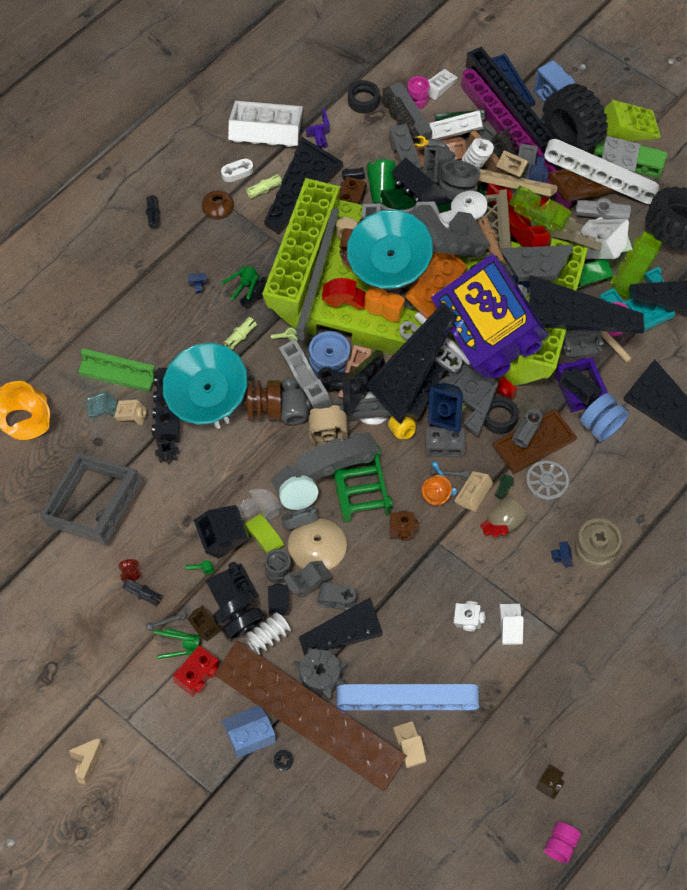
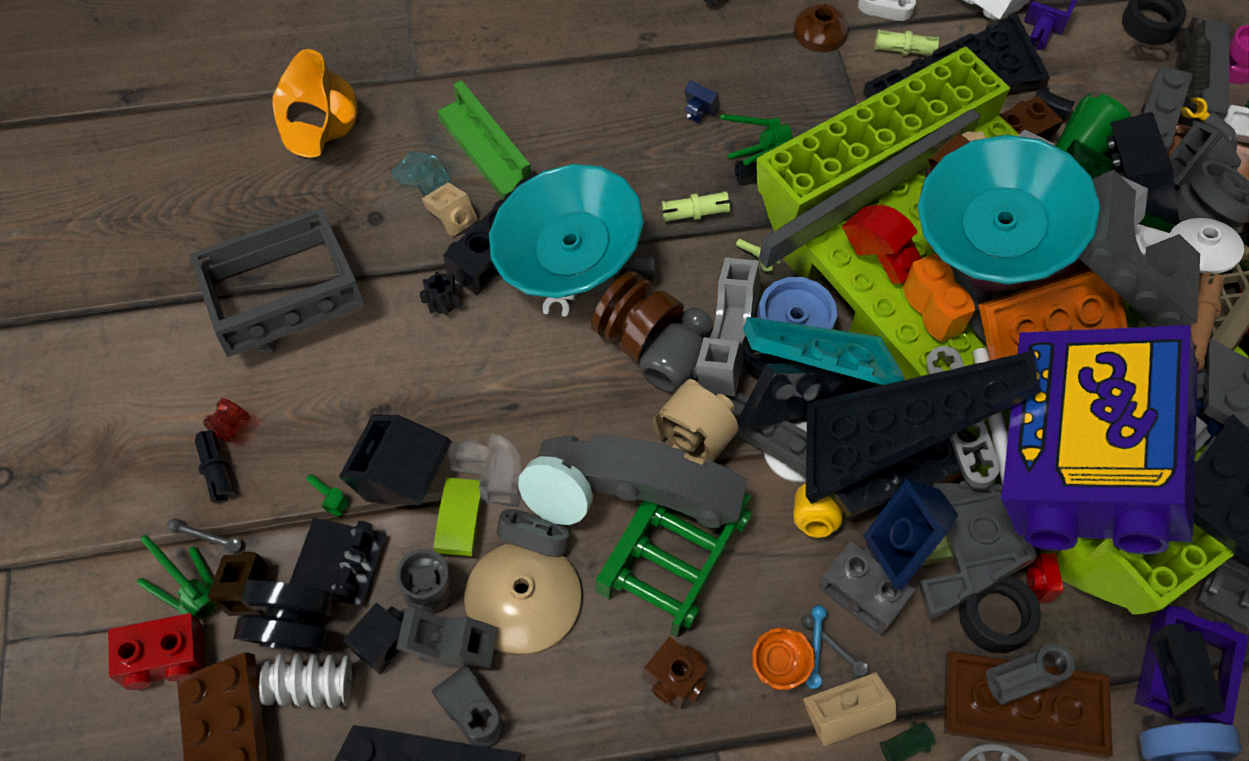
camera: 40 degrees right, 0 degrees up
(360, 355) = (824, 348): none -> teal wing

